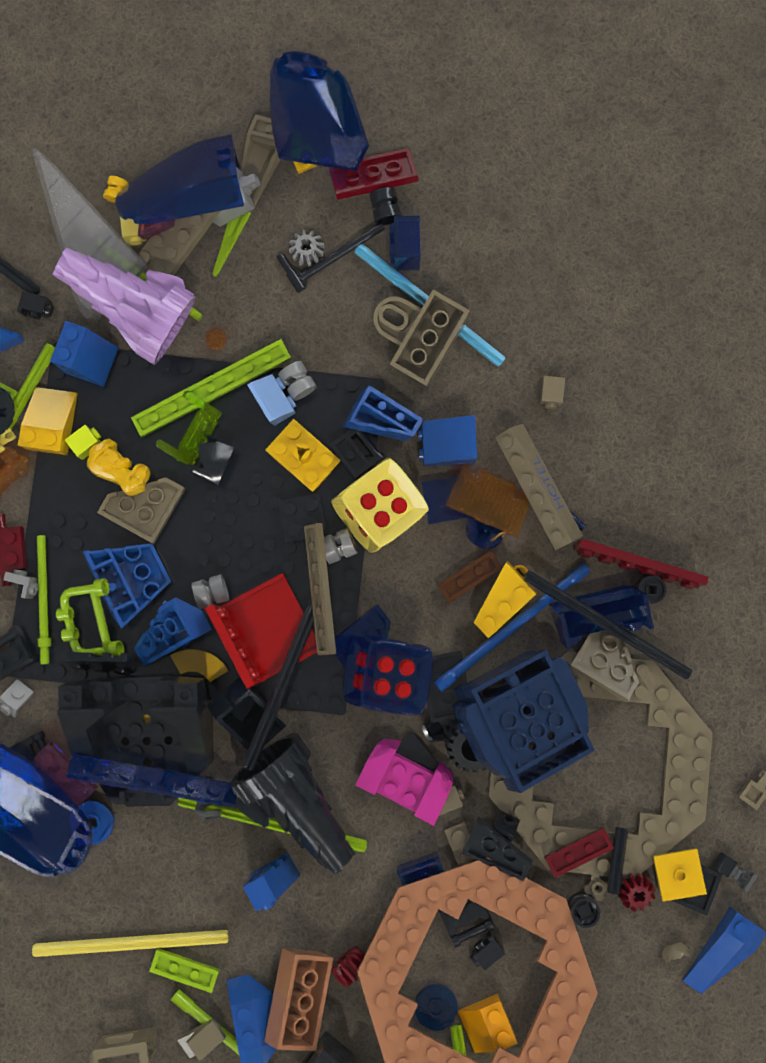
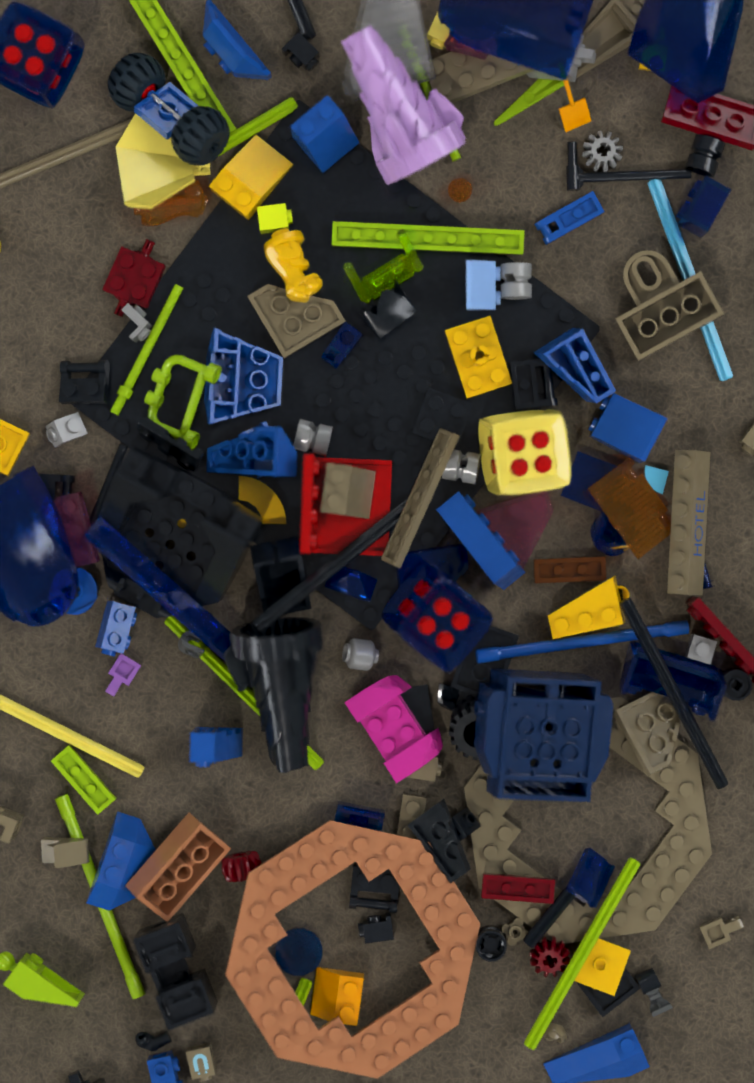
camera: 25 degrees right, 5 degrees up
(140, 833) = (115, 628): none -> brick
(167, 863) = (123, 672): none -> medium lavender plate
(192, 507) = (341, 345): none -> clear blue leg
(259, 617) = (348, 491): none -> dark tan slope
(269, 231) = (575, 113): none -> light orange piece
(307, 687) = (352, 583): none -> clear blue slope
(311, 311) = (570, 217): none -> blue plate
(345, 739) = (360, 654): none -> light grey head
(387, 595) = (481, 541): none -> blue wedge
(409, 570) = (520, 522): none -> clear pink plate
(493, 467) = (656, 478): none -> medium azure tile
(607, 578) = (700, 649): none -> light grey brick
(630, 809) = (590, 877): none -> clear blue plate
(660, 867) = (581, 953): none -> lime axle

